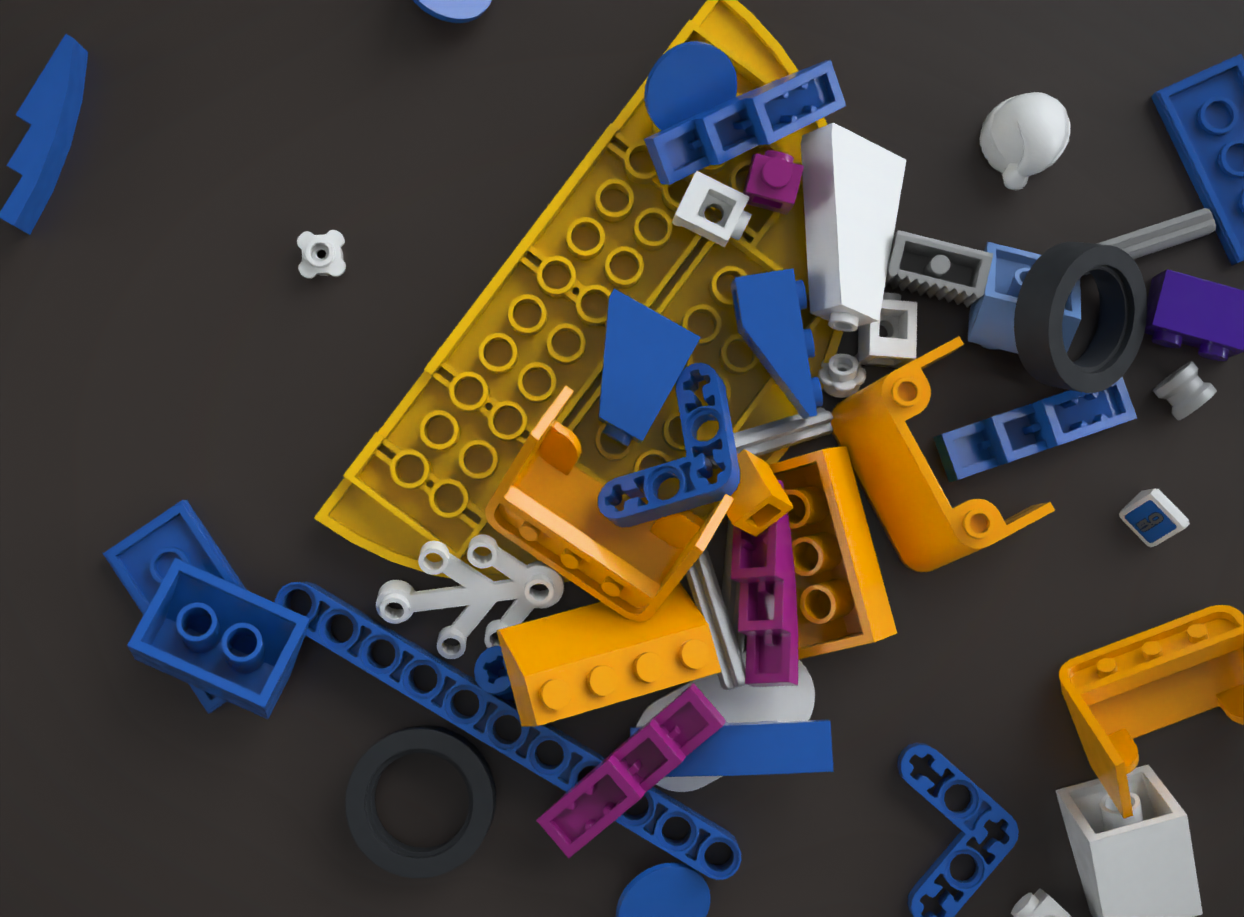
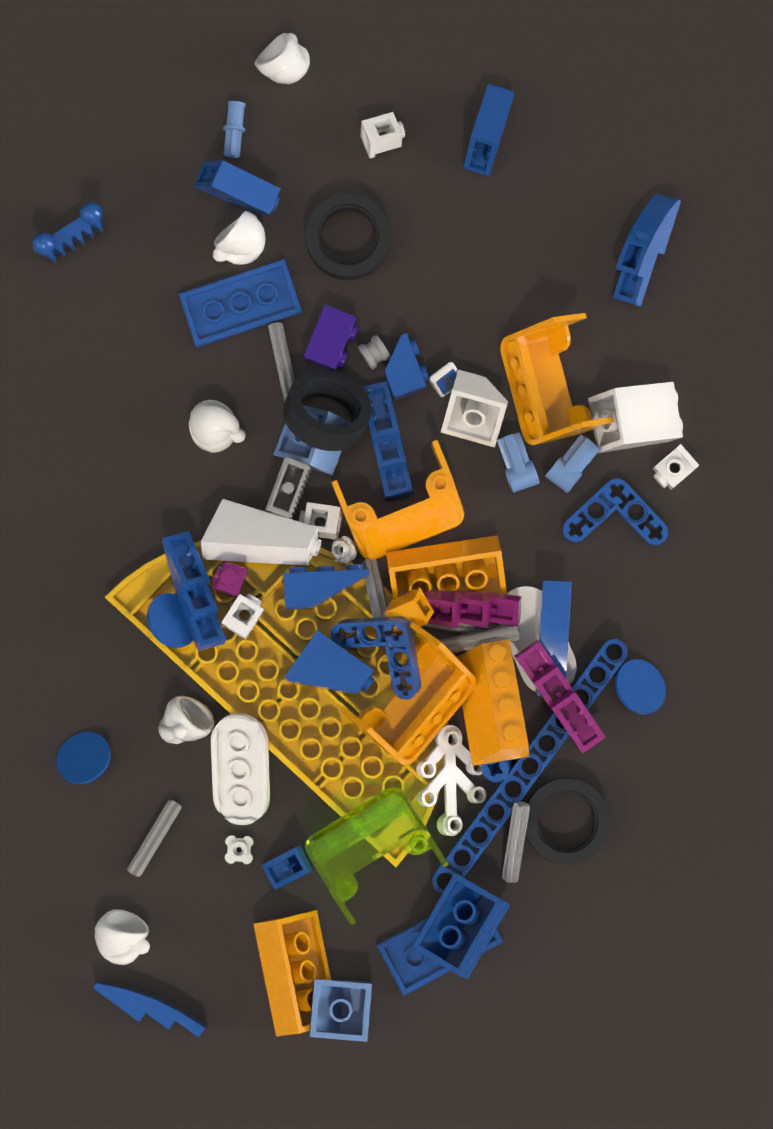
camera: 90 degrees left, 0 degrees up
(64, 450) = (341, 1009): none -> medium blue slope
(122, 370) = (291, 960): none -> light orange slope
(158, 74) = (121, 936): none -> white piece
(300, 340) = (287, 867): none -> blue slope
(328, 114) = (154, 838): none -> light grey axle
(353, 460) = (363, 838): none -> clear neon green windscreen
(376, 718) = (515, 842): none -> light grey axle
(455, 238) = (240, 768): none -> white tile
(524, 158) = (185, 720): none -> white piece
(1012, 660) = (519, 469): none -> medium blue piece
(1026, 745) = (569, 467): none -> medium blue piece
(1107, 571) = (474, 409): none -> white slope
(1158, 443) = (403, 371): none -> blue slope

